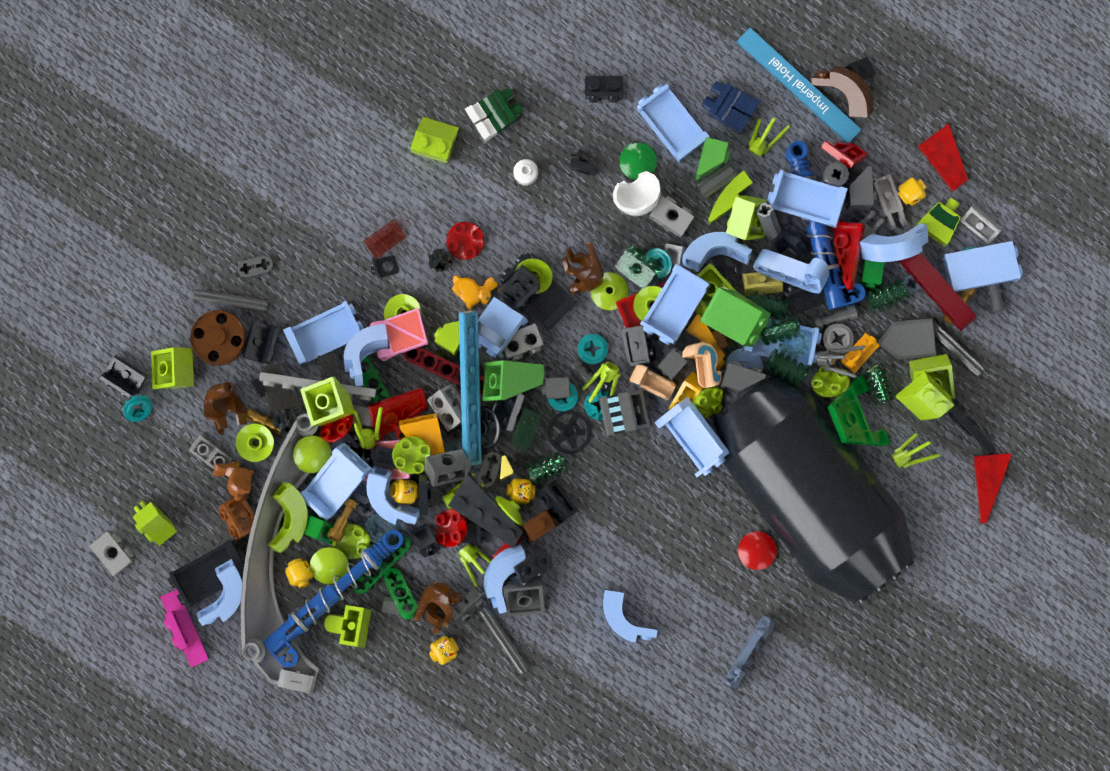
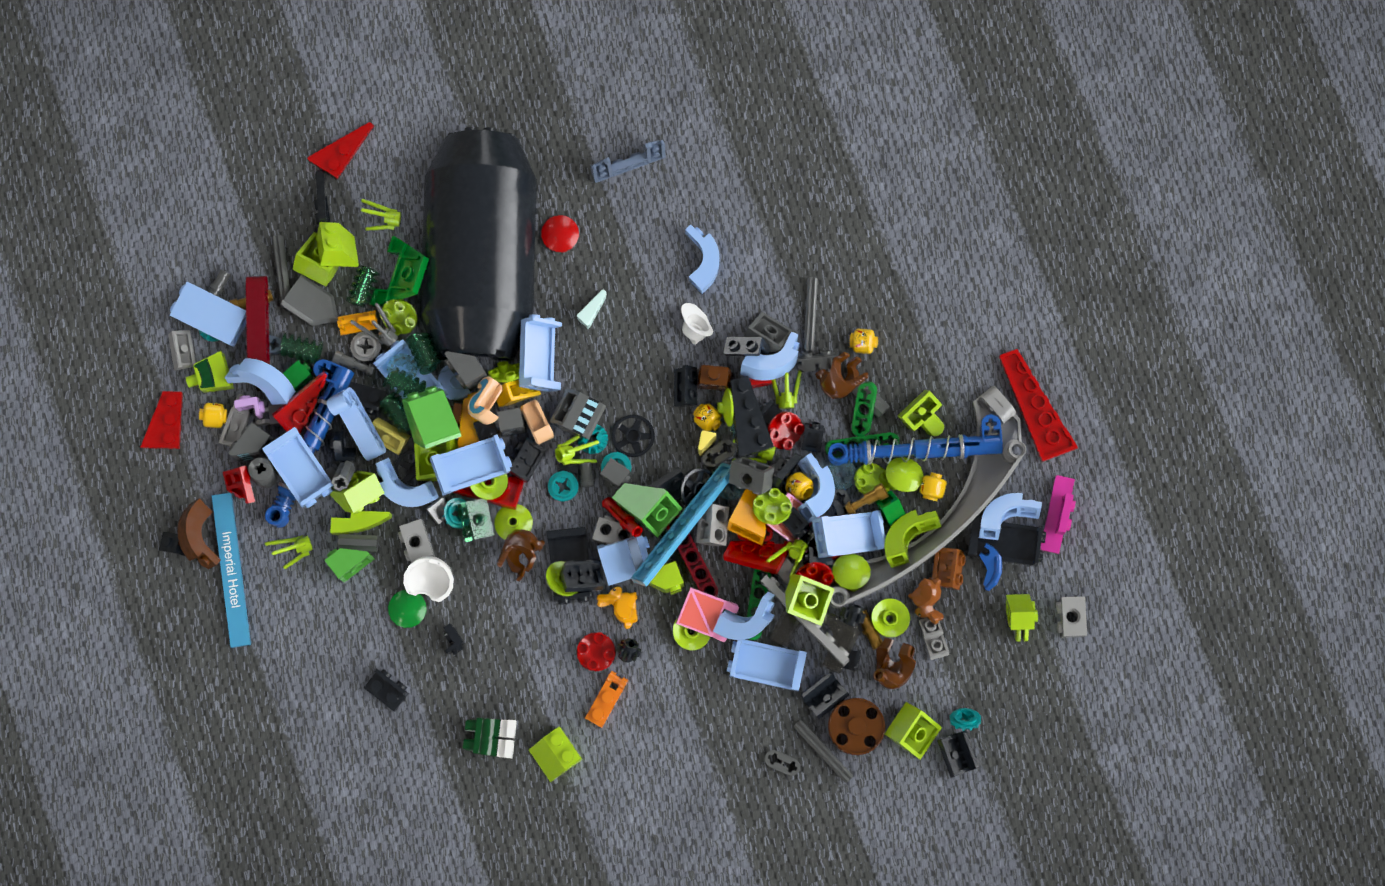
camera: 140 degrees left, 5 degrees down
(205, 547) = (993, 564): none -> blue piece
(251, 695) = (1041, 419): none -> red wing
(376, 266) = (684, 681): black bracket -> none
(384, 239) = (659, 704): clear red slope -> none
(428, 210) = (606, 700): none -> orange plate
(518, 355) = (626, 520): none -> red pin
(525, 172) = (503, 668): white head -> none
(526, 429) = (666, 461): clear green brick -> none
(547, 468) = (673, 419): clear green piece -> none
(589, 560) = (695, 323): none -> white piece
(671, 122) = (355, 617): light blue panel -> none
(681, 505) = (590, 311): none -> light aqua slope
(731, 107) = (295, 600): dark blue hips -> none
(893, 219) = (248, 402): none -> lavender bracket

